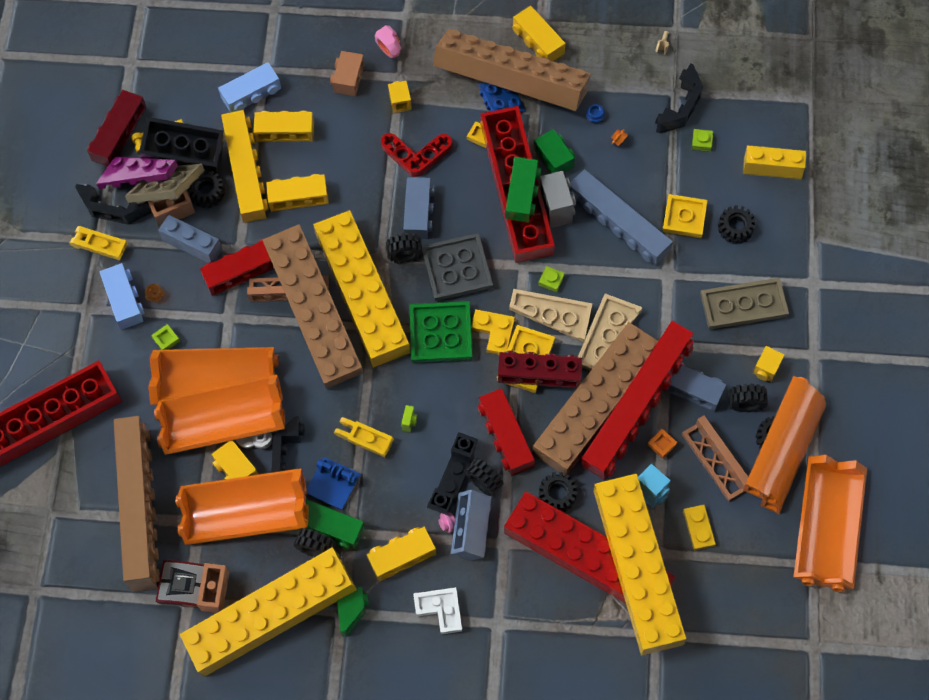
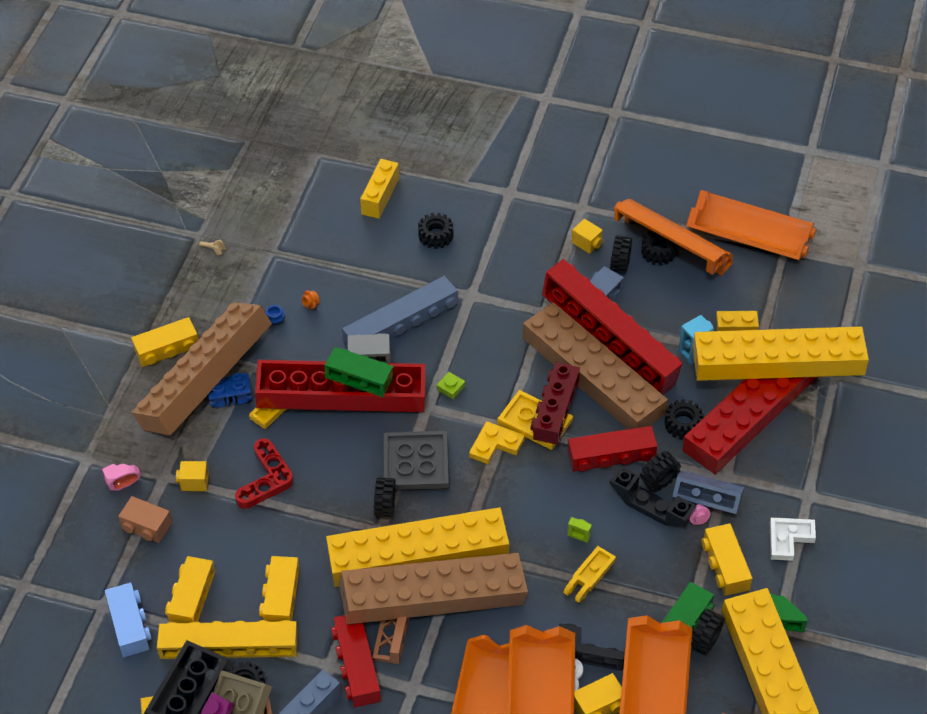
camera: 80 degrees left, 15 degrees down
(332, 483) = (634, 604): blue hinge -> none
(418, 206) = (336, 482): sand blue brick -> none
(440, 332) = (486, 484): green plate -> none
(553, 152) = (311, 349): green brick -> none
(558, 313) = (490, 386): tan wing -> none
(608, 323) = (516, 348): tan wing -> none
(662, 443) = (652, 327): orange plate -> none
(671, 119) = (270, 230): black slope -> none
(684, 216) = (414, 266): yellow plate -> none
(702, 140) = (333, 239): lime plate -> none
(720, 451) = (669, 289): nougat fence -> none
(744, 303) = (520, 242): dark tan plate -> none

